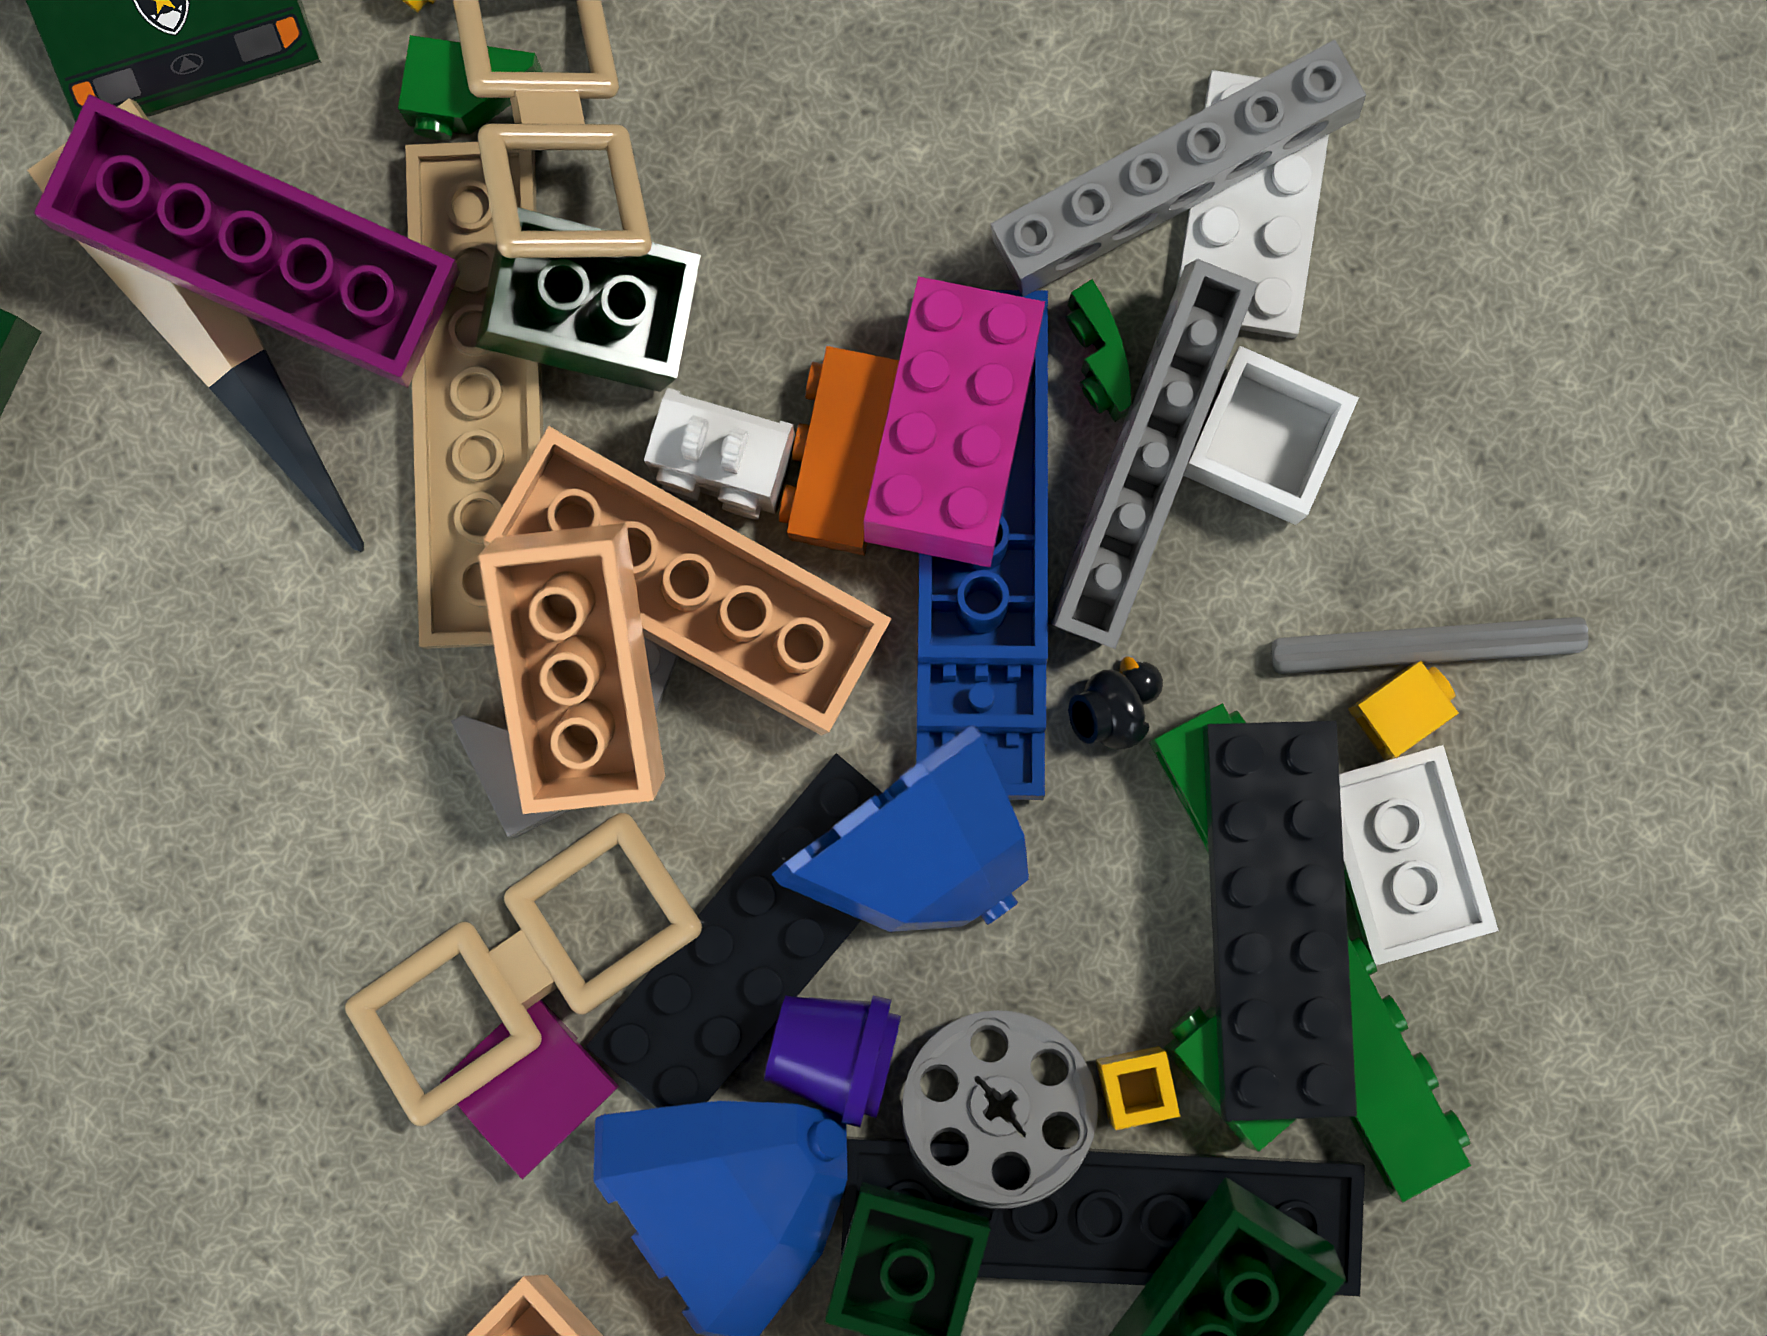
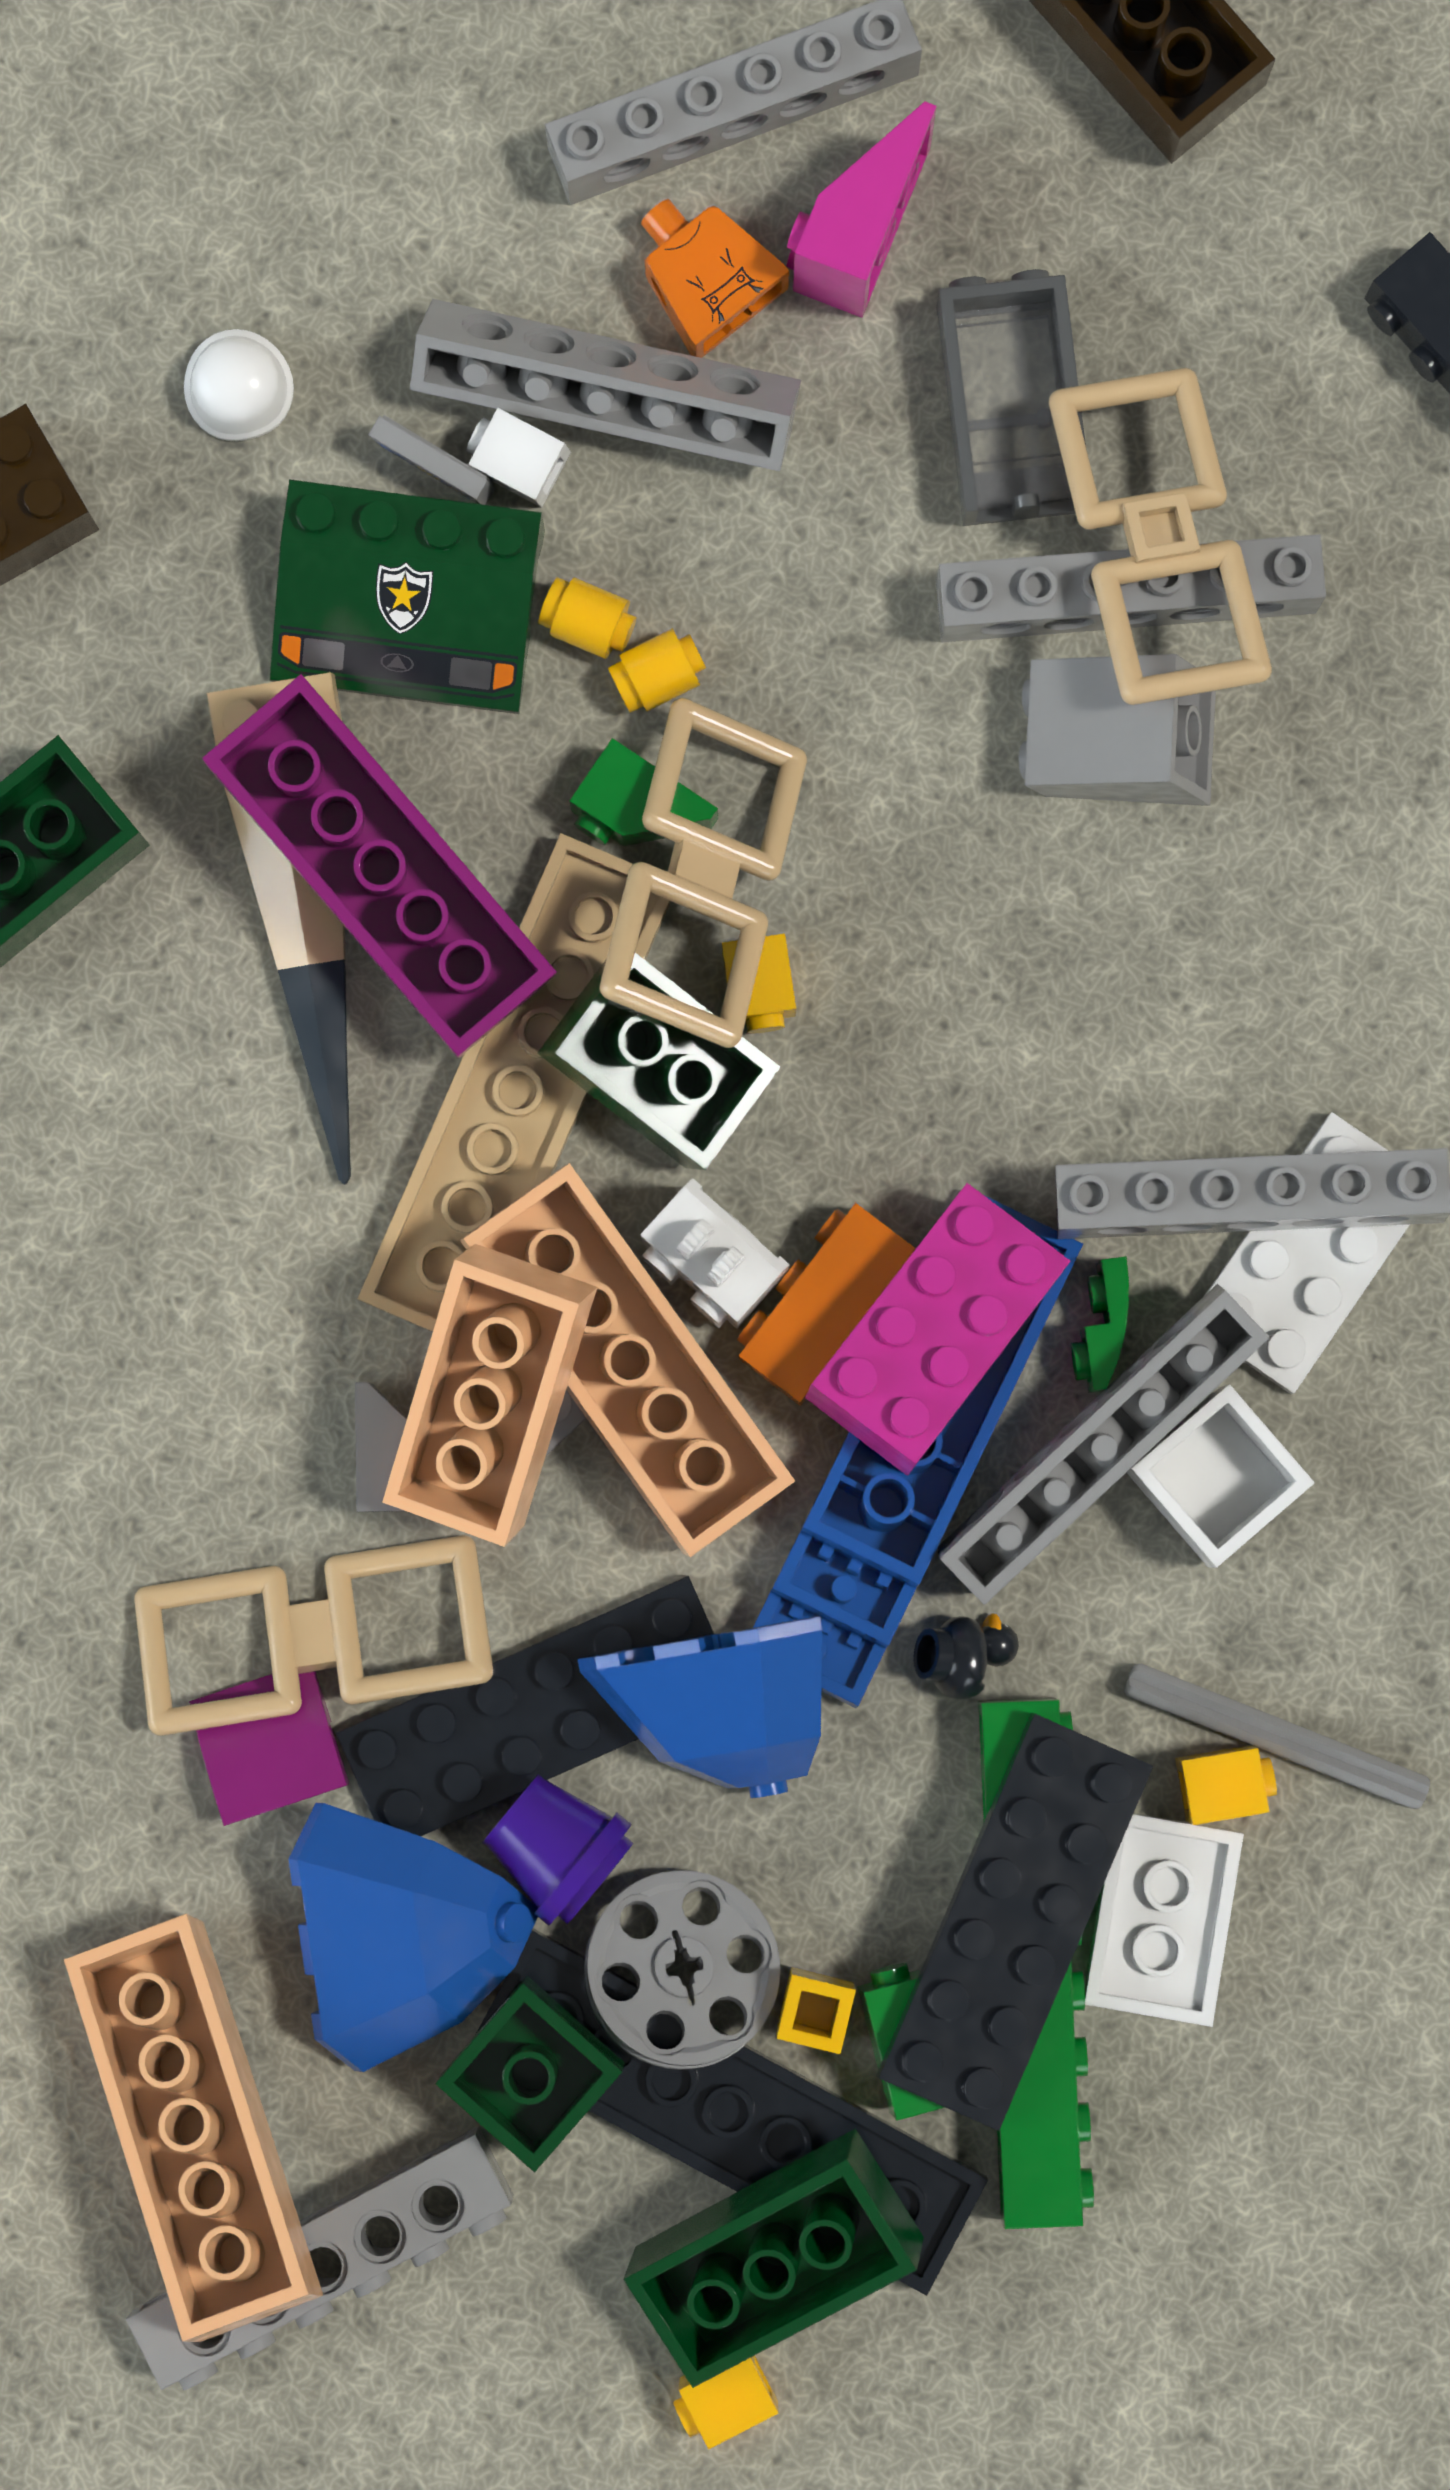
camera: 25 degrees right, 0 degrees up
(663, 196) = (773, 986): none -> yellow brick

